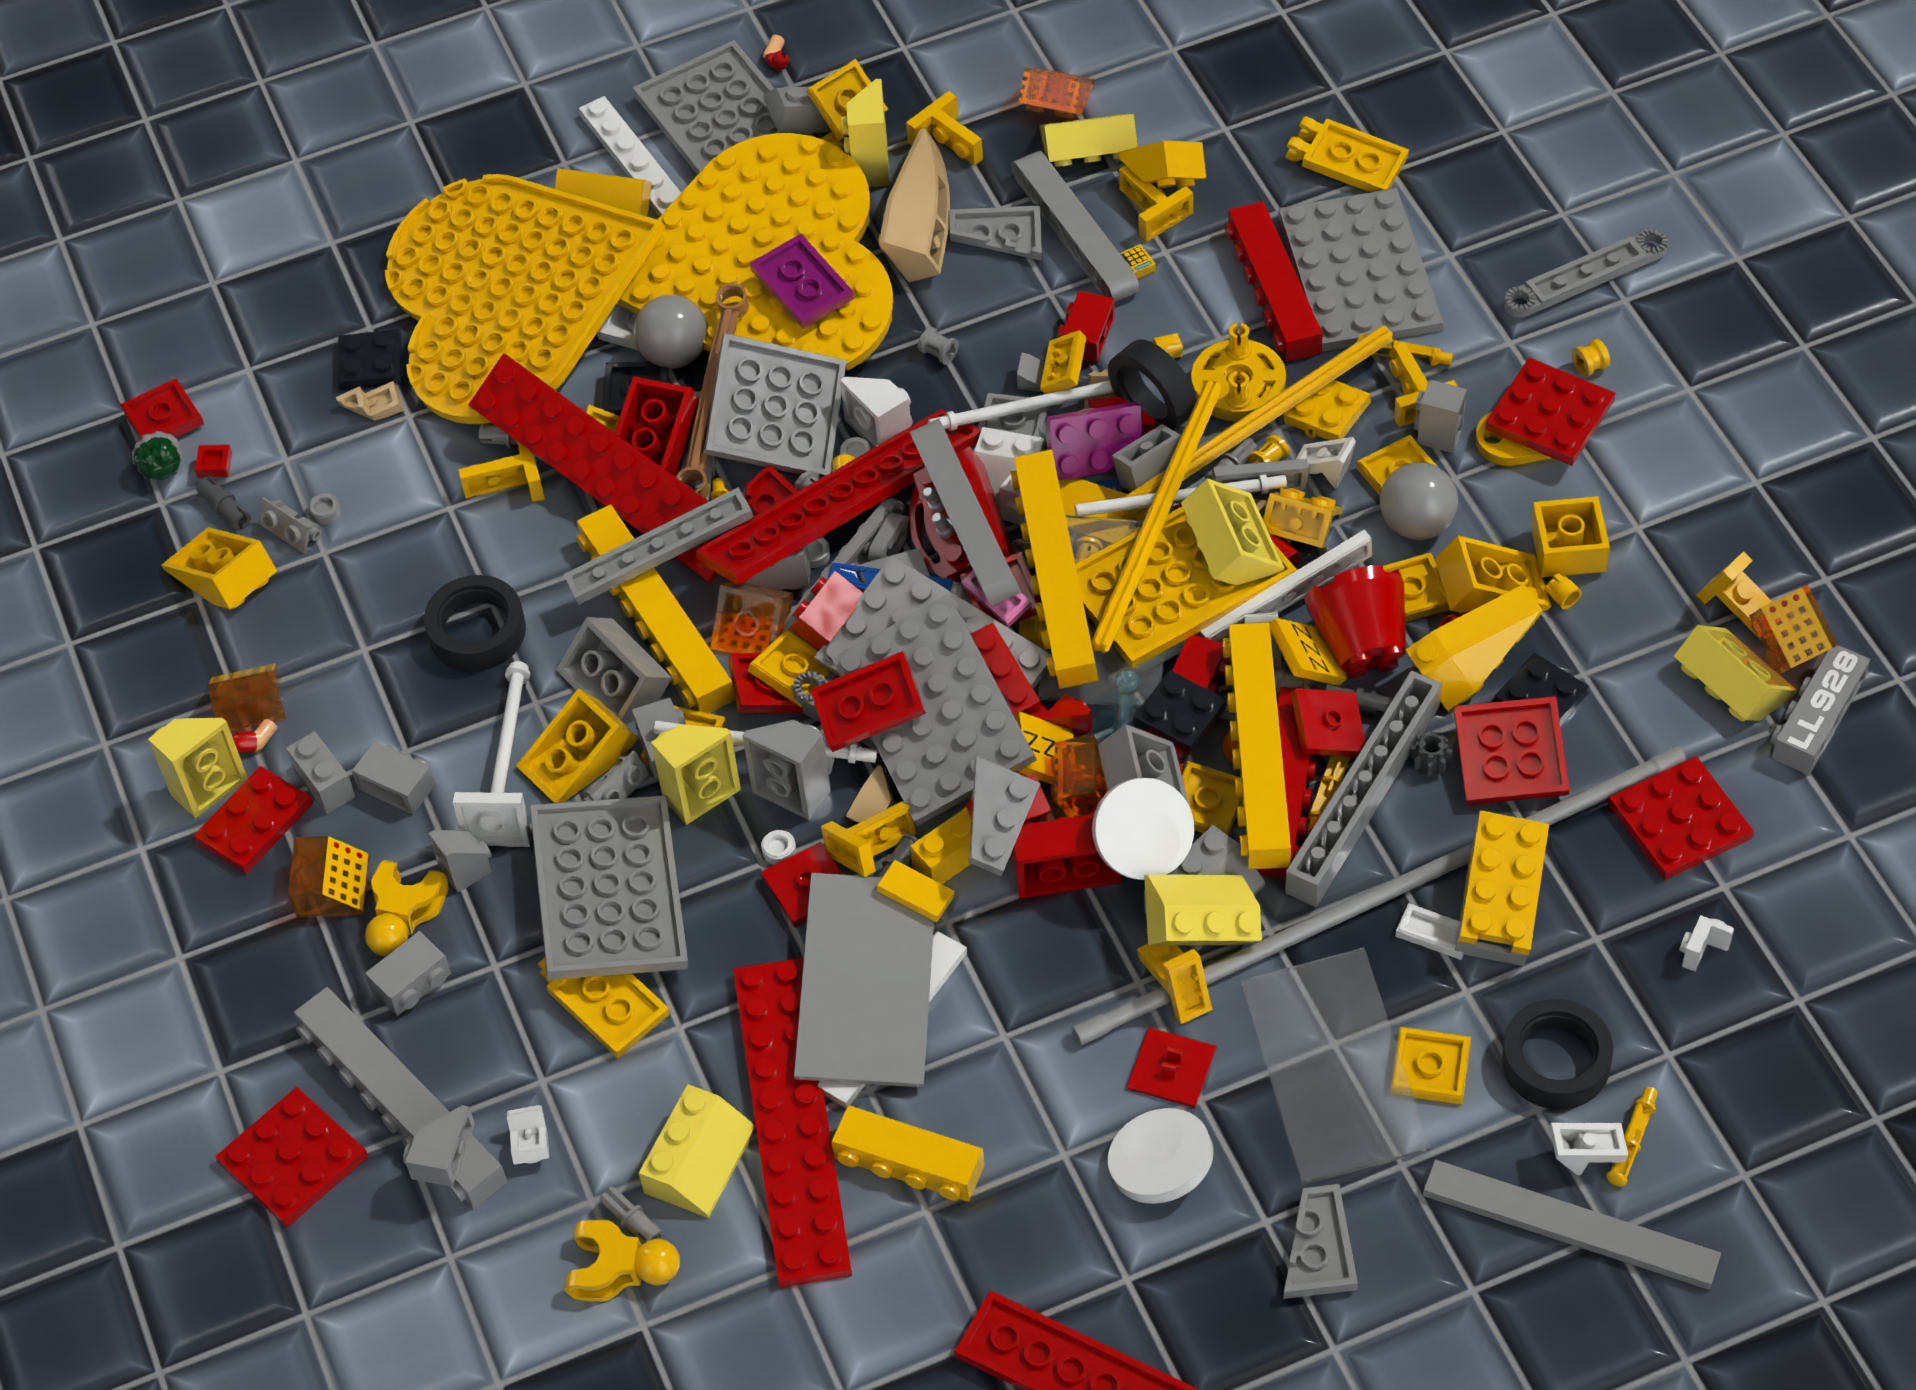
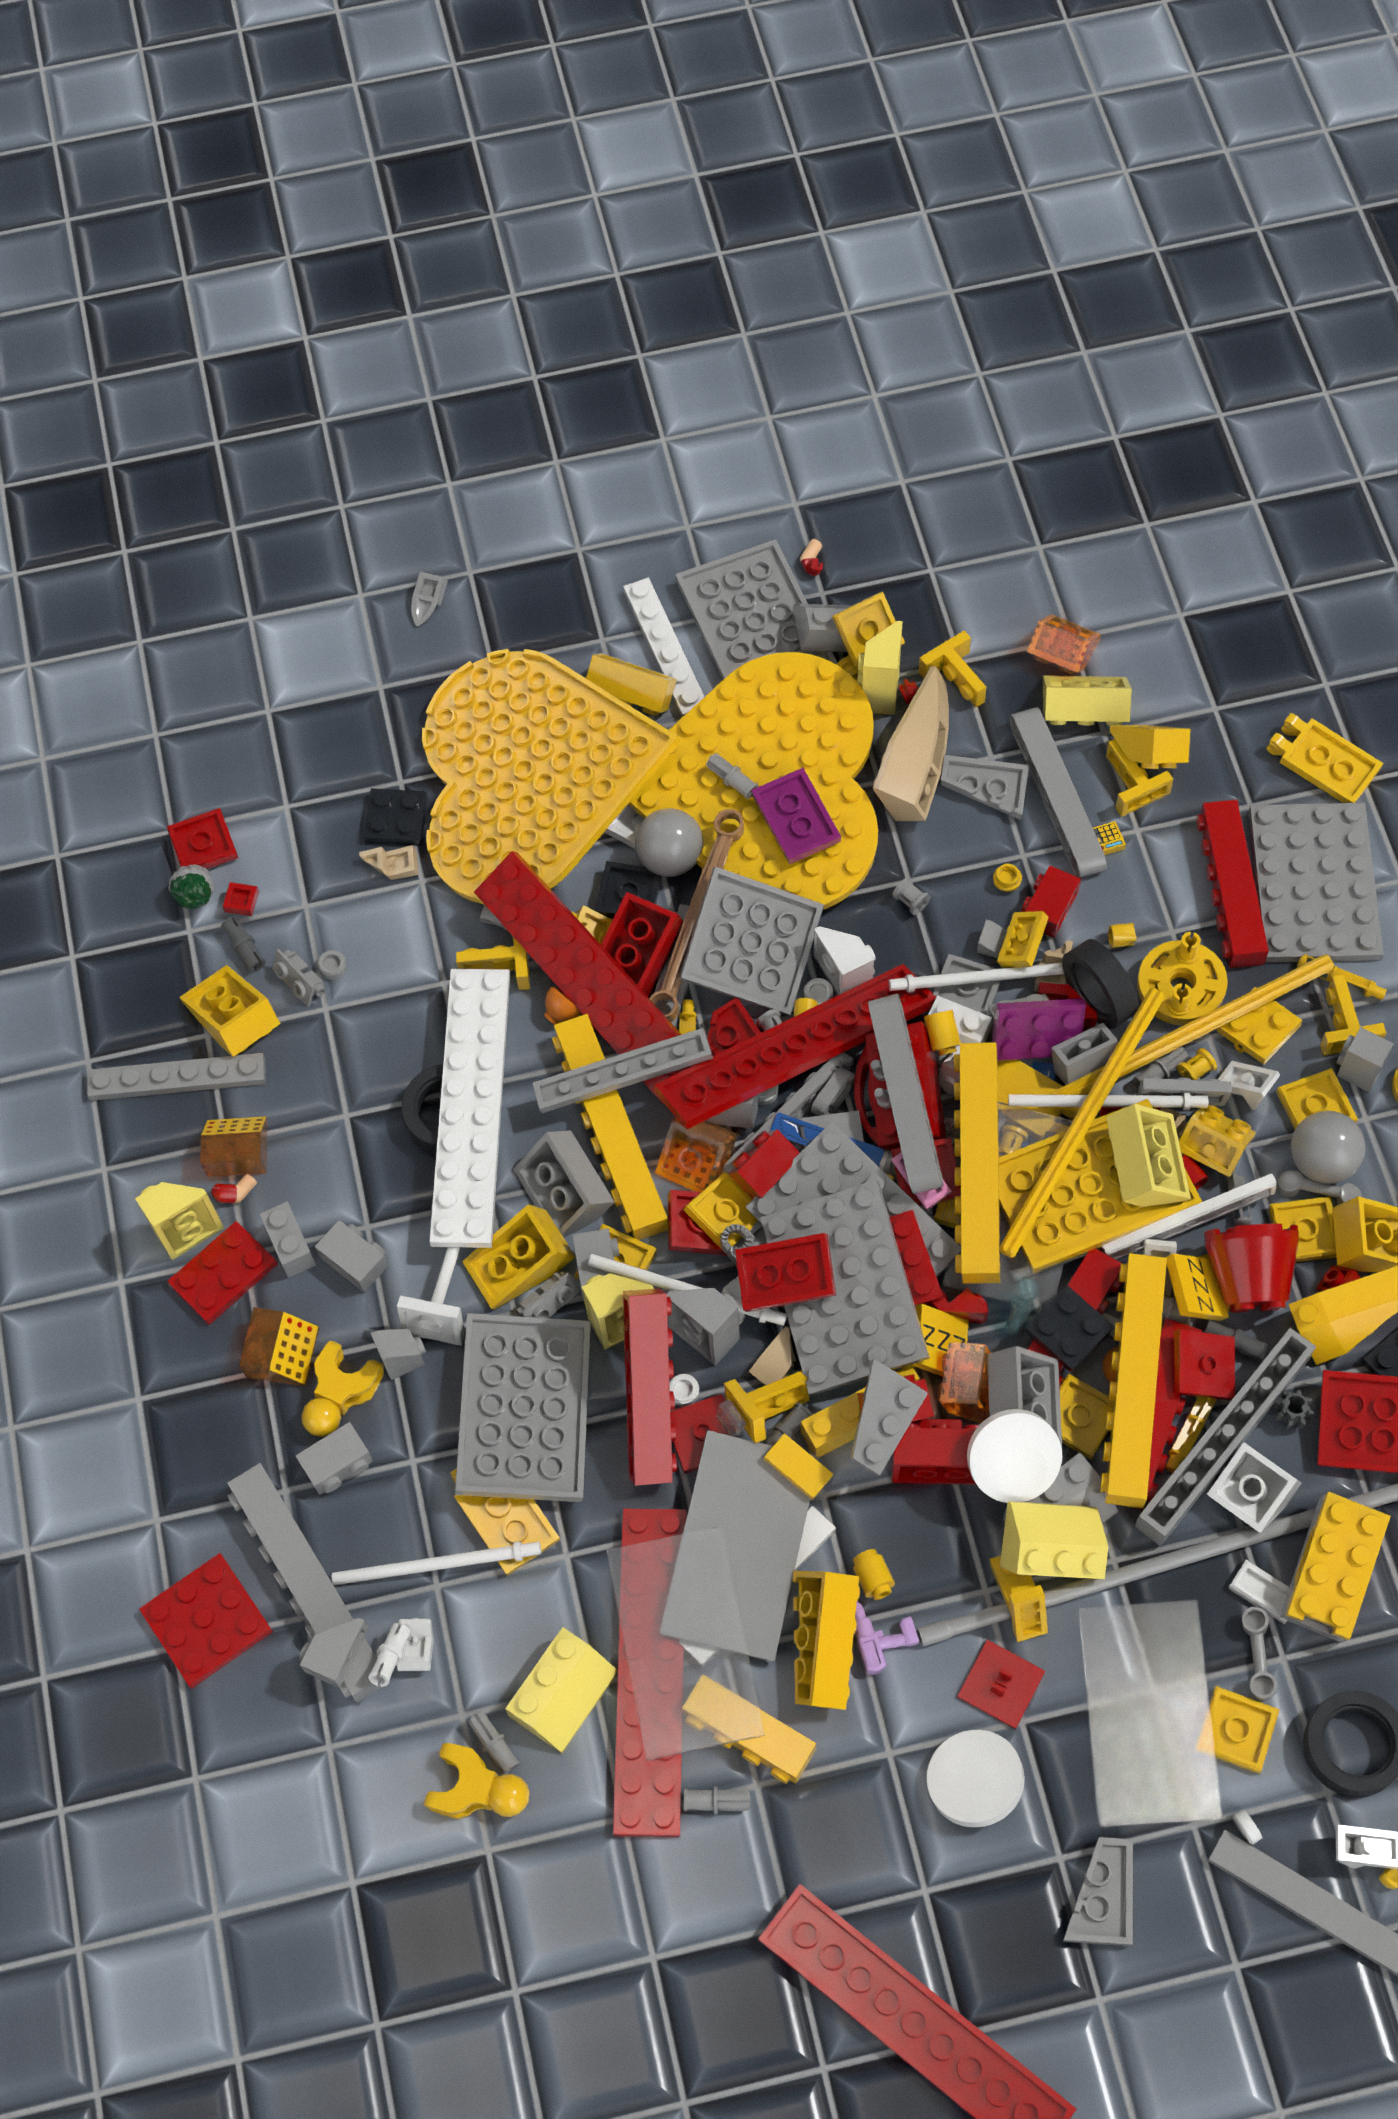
camera: 10 degrees right, 10 degrees up
(170, 641) = (176, 1076): none -> light grey plate
(368, 148) = (426, 596): none -> light grey plate
(500, 613) = (470, 1109): none -> white plate
(502, 1143) = (389, 1654): none -> white pin
(579, 504) = (559, 1006): none -> orange brick
(624, 1025) = (515, 1551): none -> white bar
(725, 254) = (731, 775): none -> light grey axle
(740, 832) = (648, 1386): none -> brick
(823, 1078) = (684, 1643): none -> clear piece
(834, 857) = (731, 1419): none -> clear tile
(884, 1229) = (716, 1800): none -> light grey axle
(898, 156) = (908, 690): none -> red plate
(973, 1045) = (824, 1637): none -> yellow wedge
(994, 455) = (942, 1032): none -> yellow brick
(1015, 984) = (873, 1574): none -> yellow brick
(1026, 1051) = (872, 1643): none -> lavender piece
(1036, 313) = (1007, 878): none -> yellow plate
(1388, 545) = (1292, 1181): none -> light grey bar
(1404, 828) = (1254, 1488): none -> white slope
(1430, 963) = (1255, 1624): none -> light grey bar
(1458, 1151) = (1247, 1827): none -> white tile

